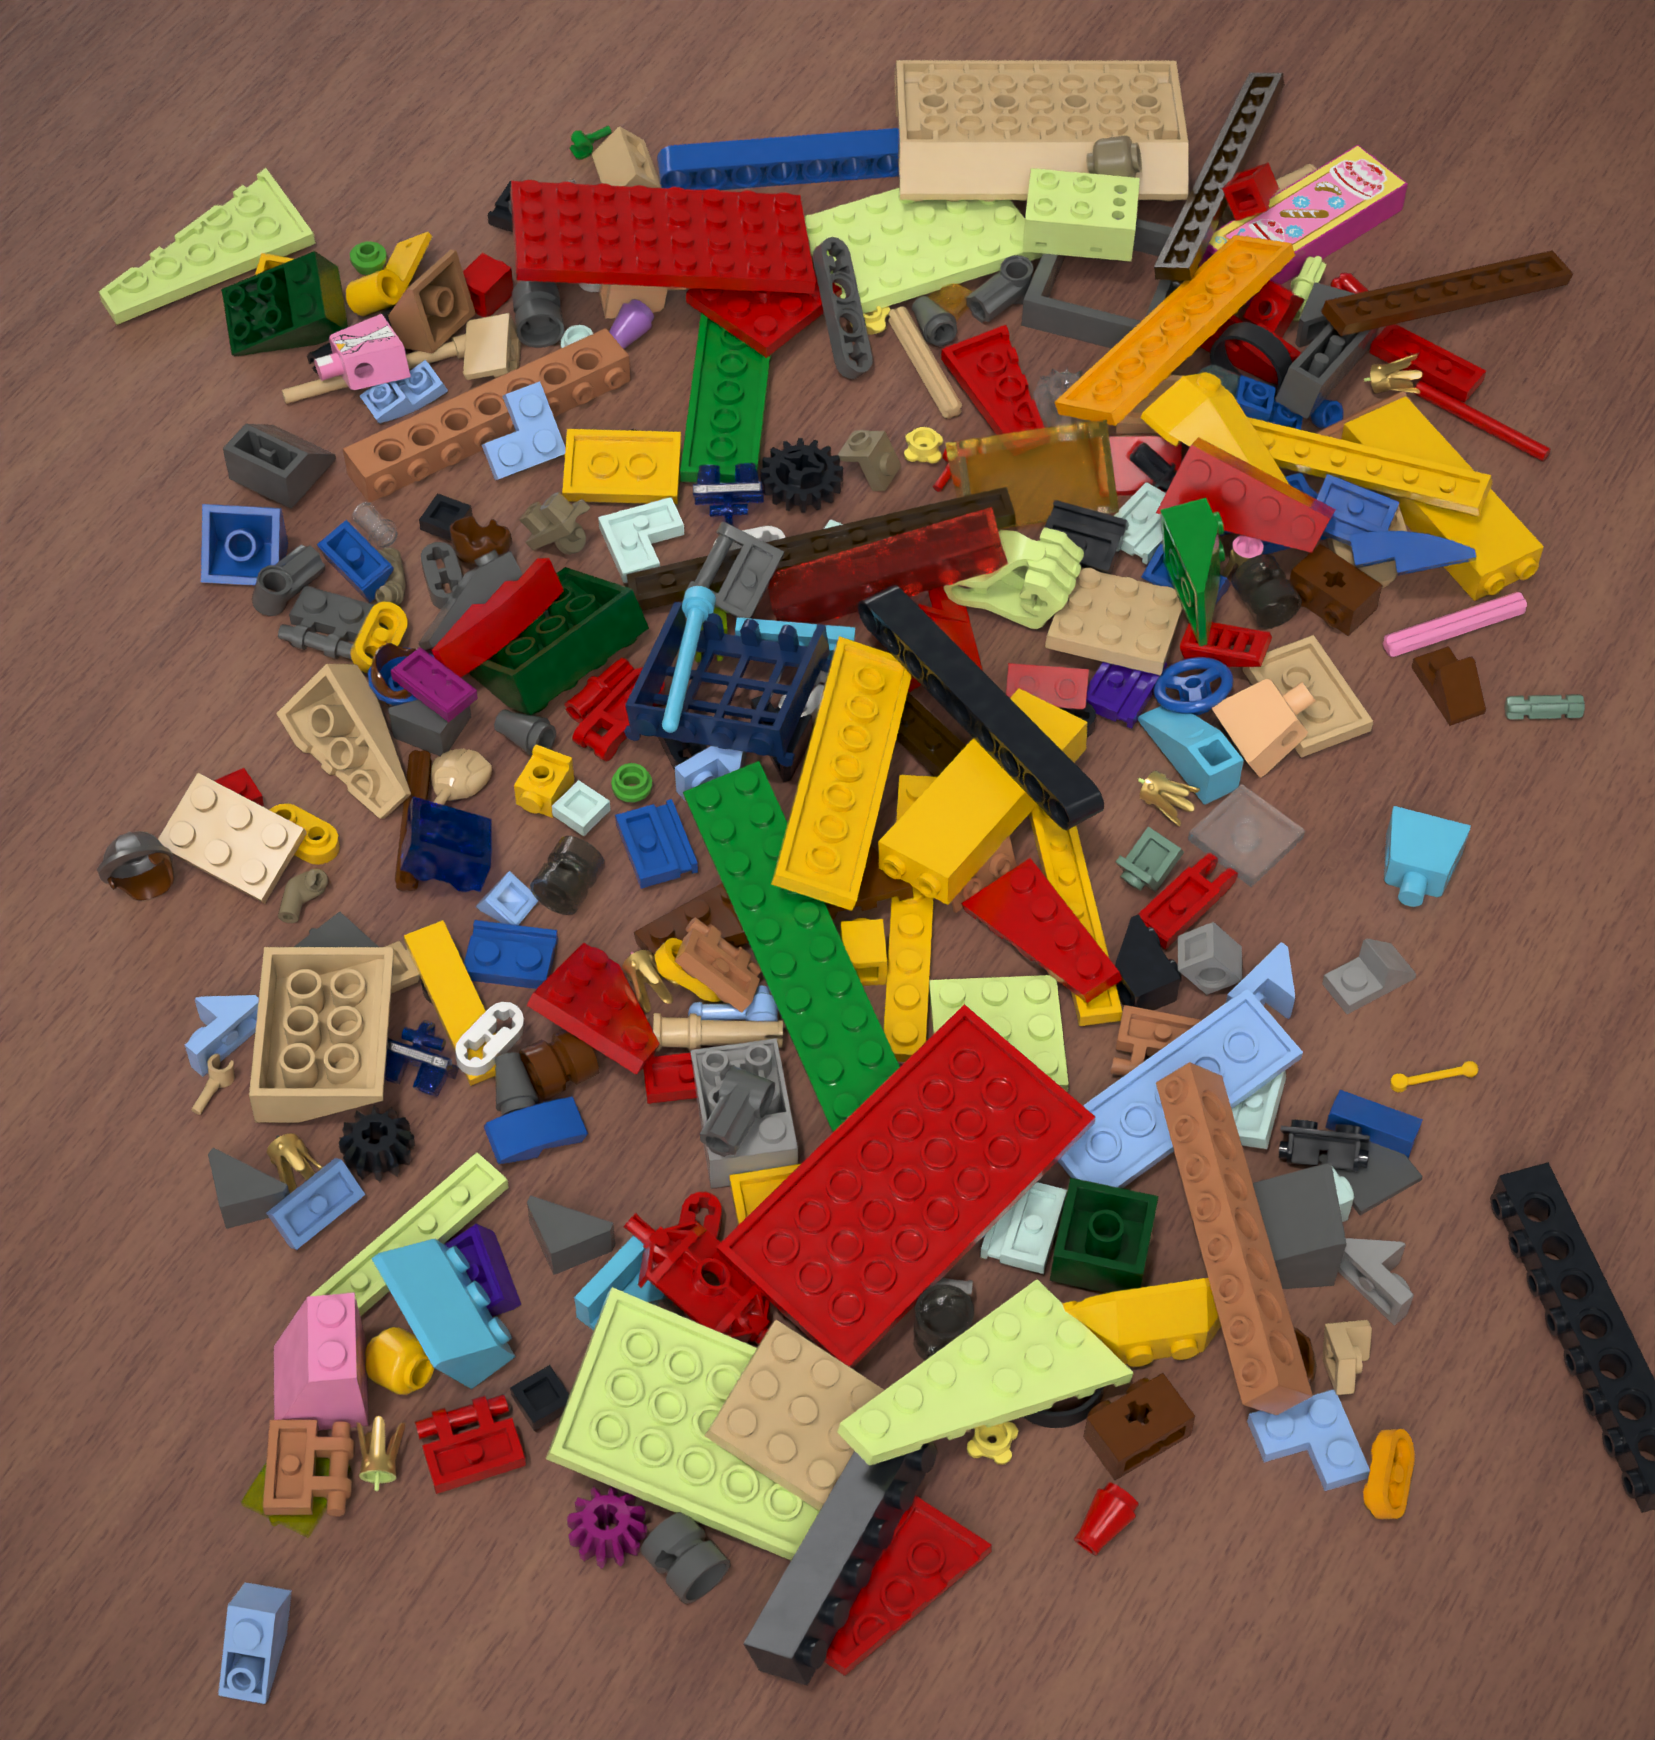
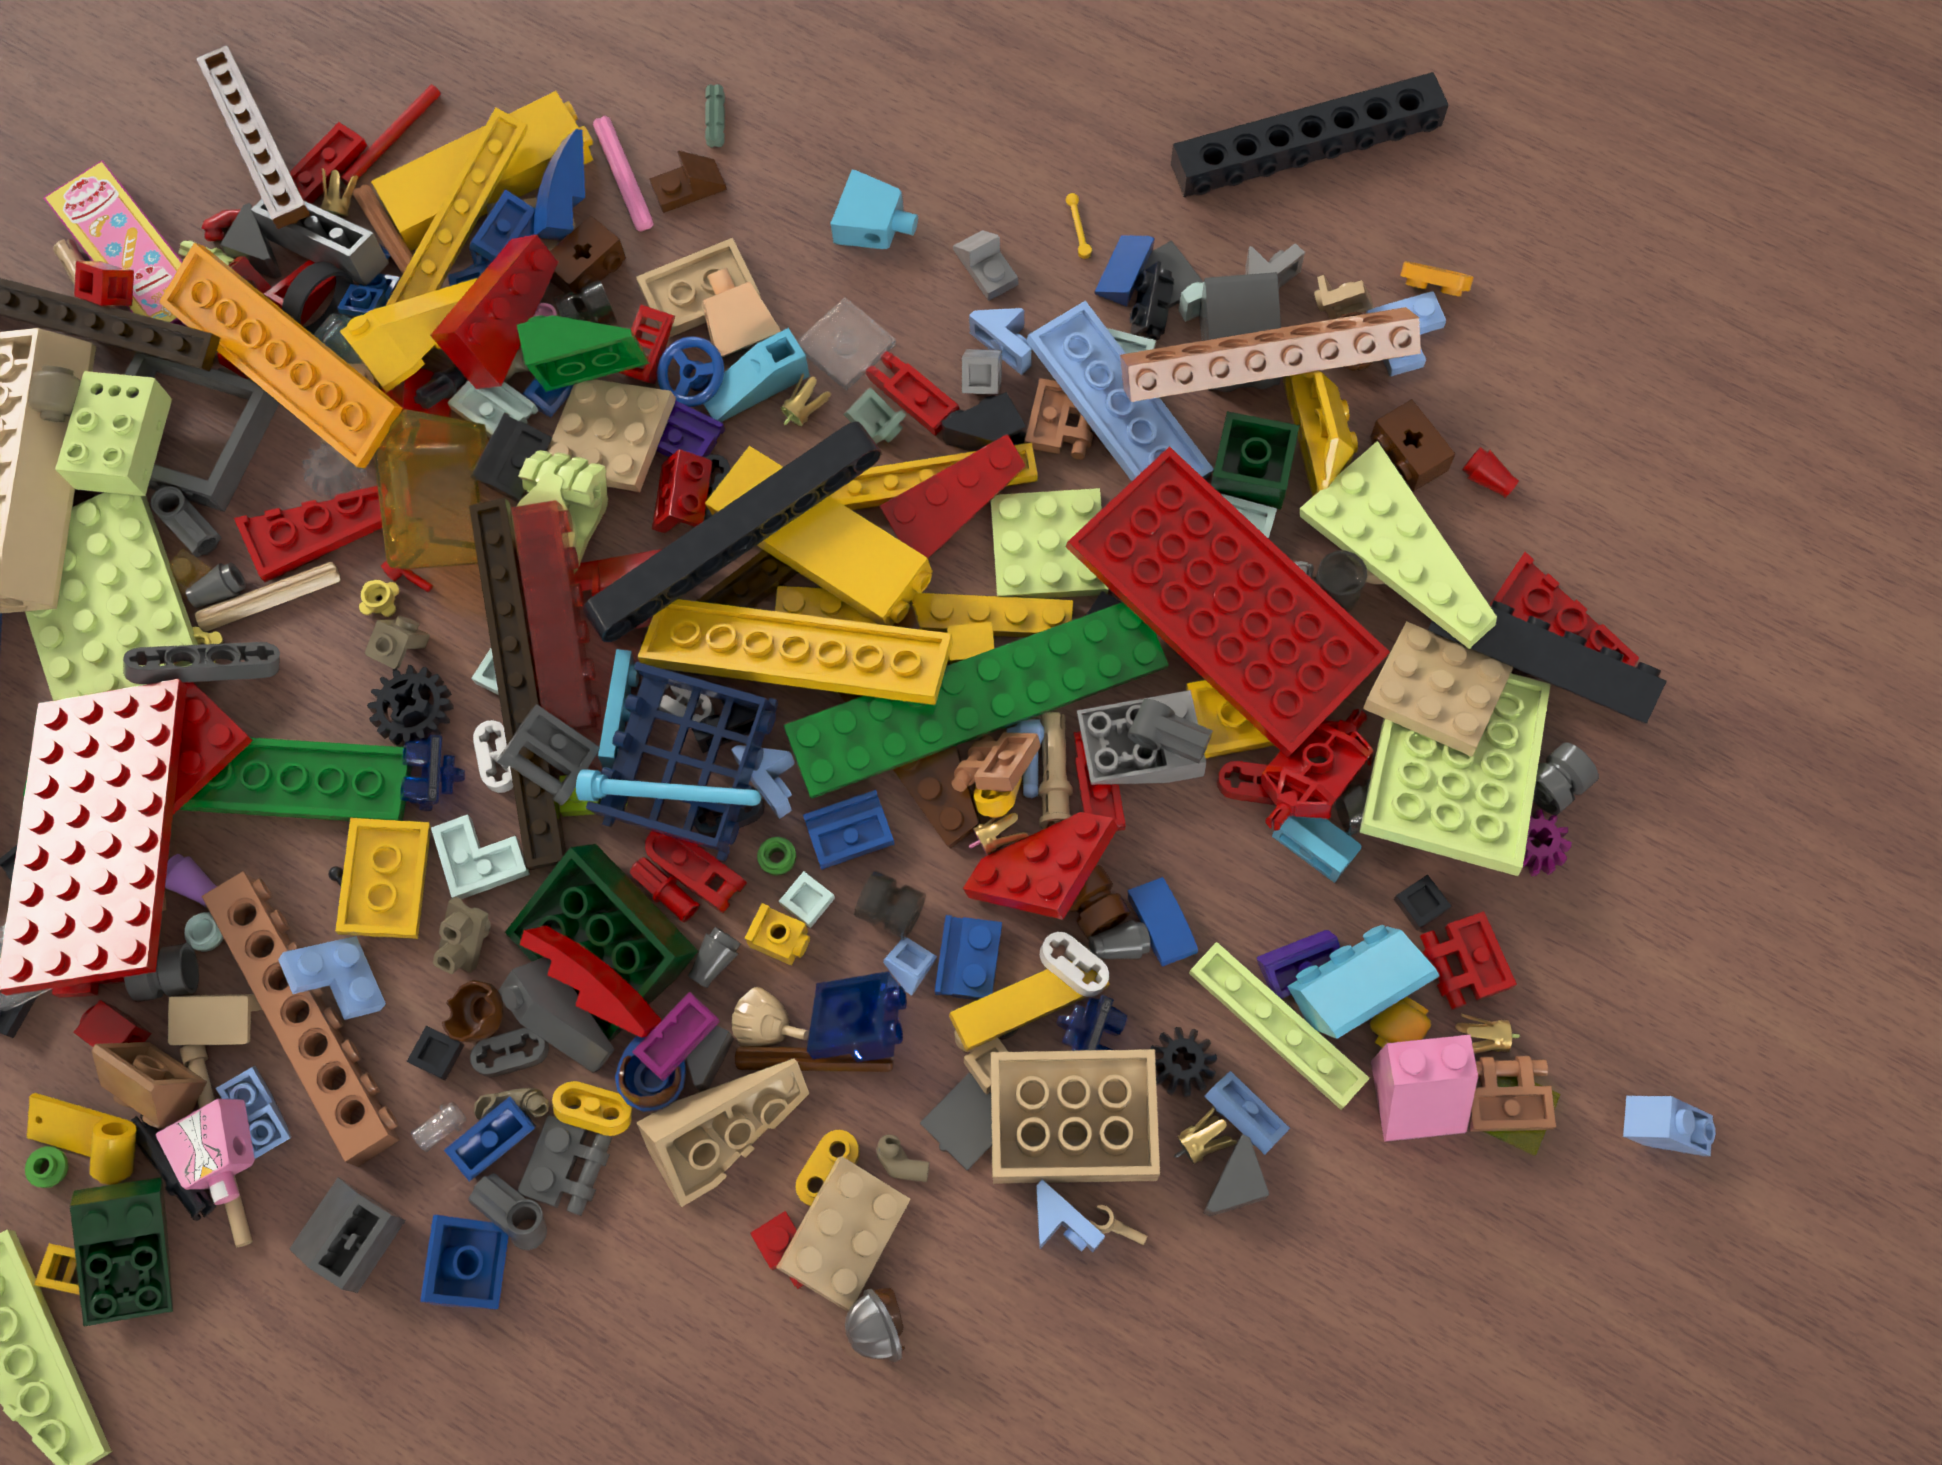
camera: 85 degrees left, 15 degrees up
(568, 1235) = (1270, 890): dark grey slope -> none

